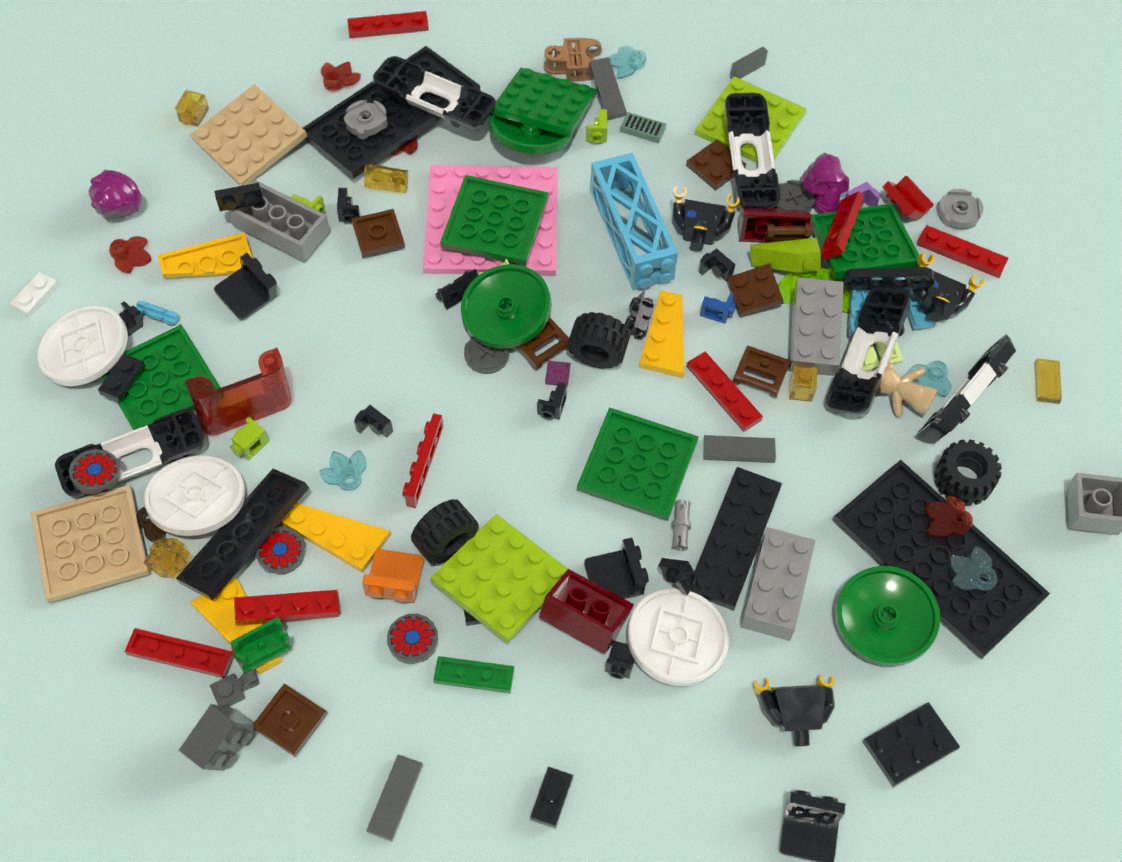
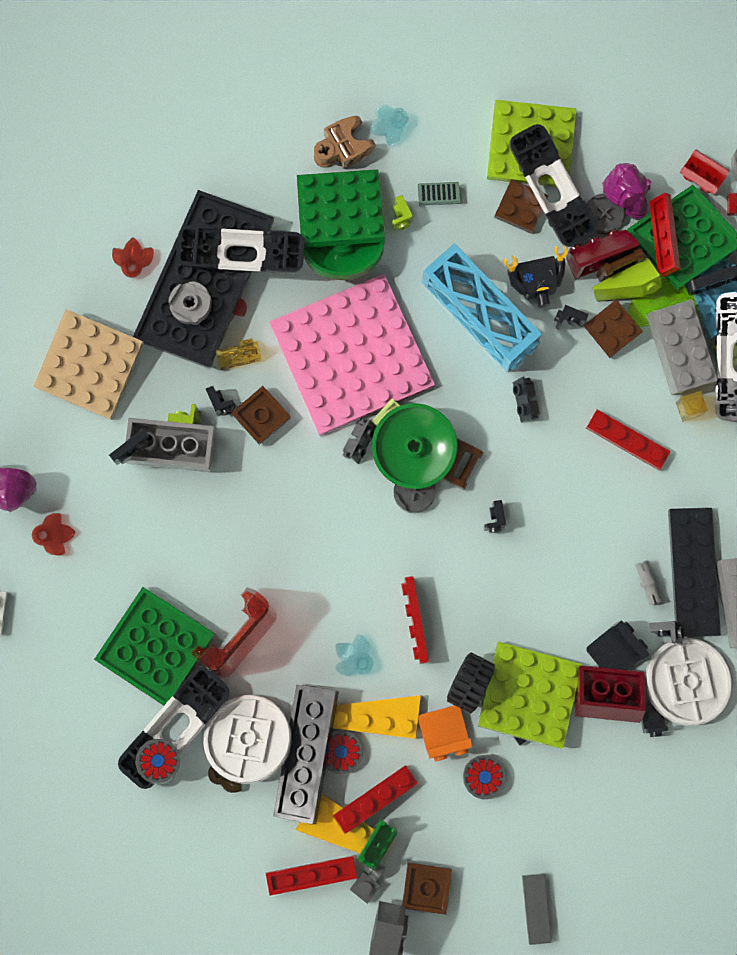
camera: 25 degrees left, 20 degrees up
(82, 345) = (70, 646): white plate -> none
(89, 544) = (185, 819): tan plate -> none
(121, 378) = (124, 663): black plate -> none
(131, 318) = (90, 605): black bracket -> none
(157, 312) = (112, 582): medium azure axle -> none
(167, 557) = (257, 803): clear yellow brick -> none
(192, 108) = (19, 358): clear yellow brick -> none
(206, 259) = (132, 505): yellow wing -> none
(247, 288) = (178, 526): black bracket -> none
(249, 440) = (261, 668): lime brick -> none
(375, 420) = (359, 603): black bracket -> none
(387, 24) = (146, 177): red plate -> none
(473, 674) = (546, 784): green tile -> none
(495, 220) = (361, 360): green plate -> none
(551, 797) = (652, 855): black plate -> none
(557, 372) = (483, 485): magenta tile -> none
(598, 340) = (509, 446): black tyre -> none
(607, 87) = (389, 166): dark grey tile -> none
(638, 463) = (589, 542): green plate -> none
(664, 342) = (557, 411): yellow wing -> none
(716, 309) = (588, 364): blue bracket -> none
(739, 449) = (663, 489): dark grey tile -> none
(749, 63) = (503, 79): dark grey tile -> none
(762, 364) = (651, 400): reddish brown plate -> none
(870, 194) = (667, 184): medium lavender bracket -> none

